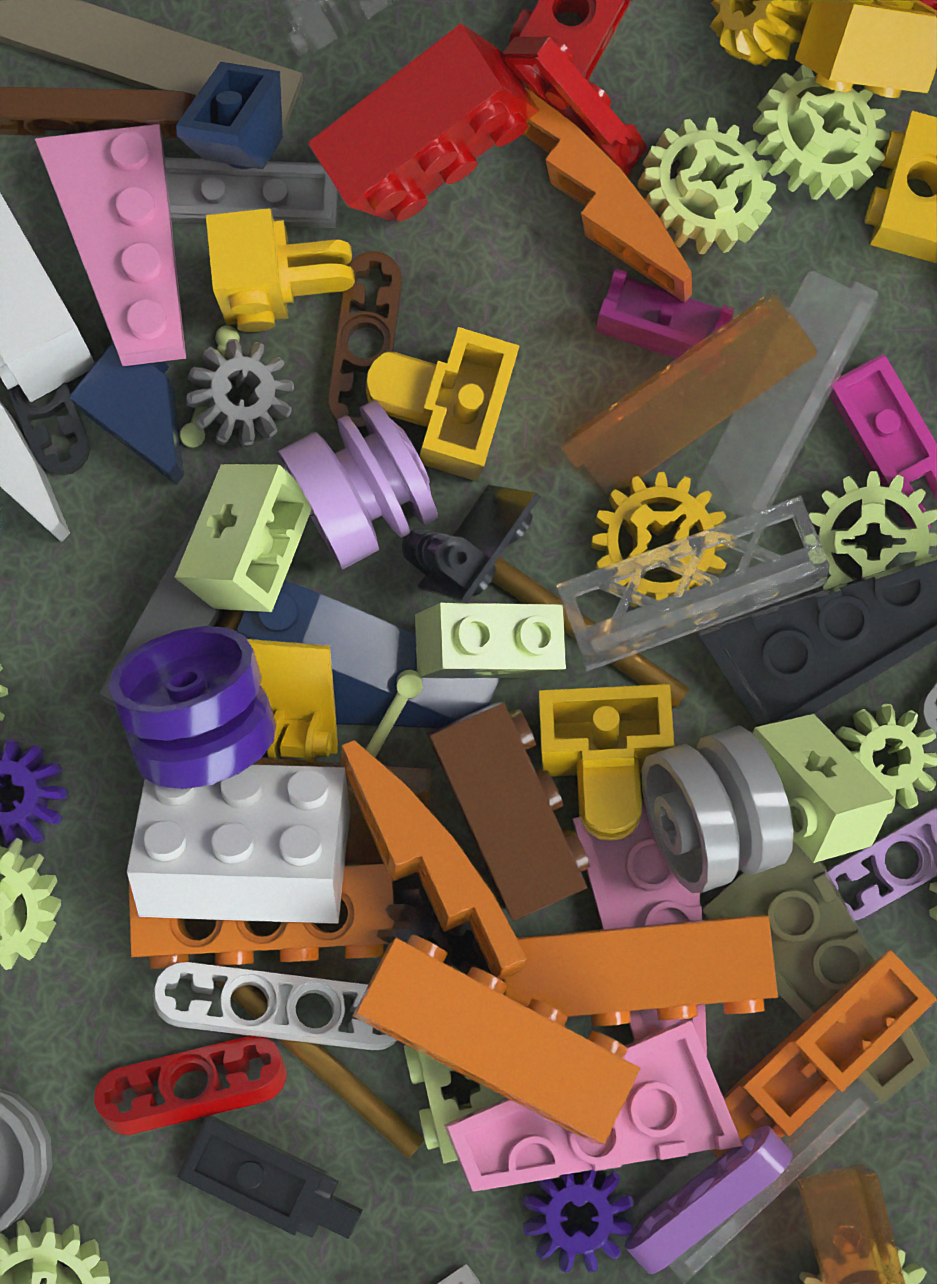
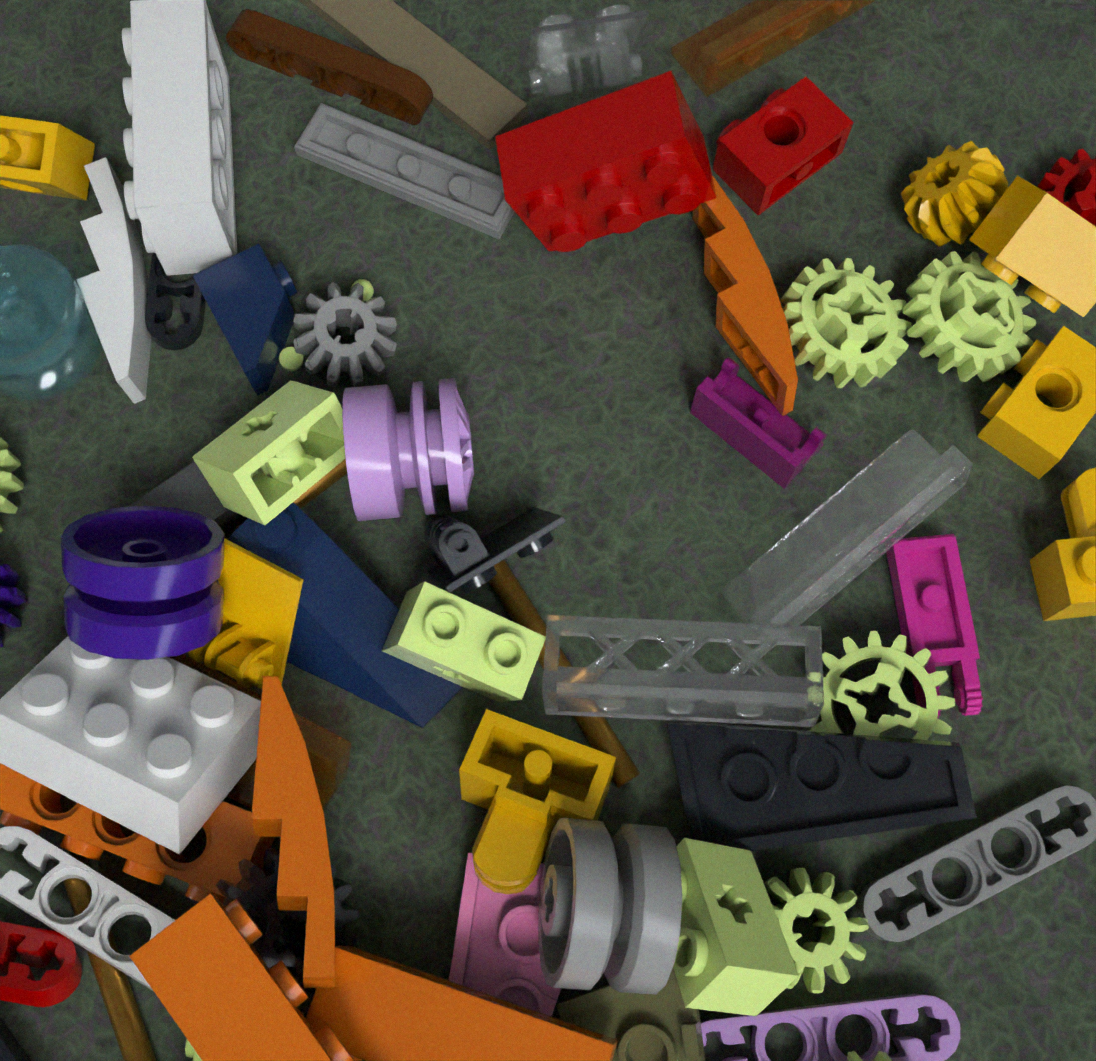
camera: 25 degrees right, 10 degrees down
(122, 226) = (307, 168): bright pink wing -> none
(235, 117) = (446, 106): dark blue slope -> none
(261, 273) = (409, 236): yellow brick -> none
(387, 300) = (487, 296): reddish brown beam -> none
(408, 686) = (367, 654): yellowish green hinge -> none
(452, 398) = (528, 412): yellow brick -> none
(510, 808) = (401, 815): reddish brown brick -> none
(549, 72) = (739, 169): red hinge -> none
(639, 519) = (659, 594): yellow gear -> none
(691, 394) = (754, 492): clear orange panel -> none

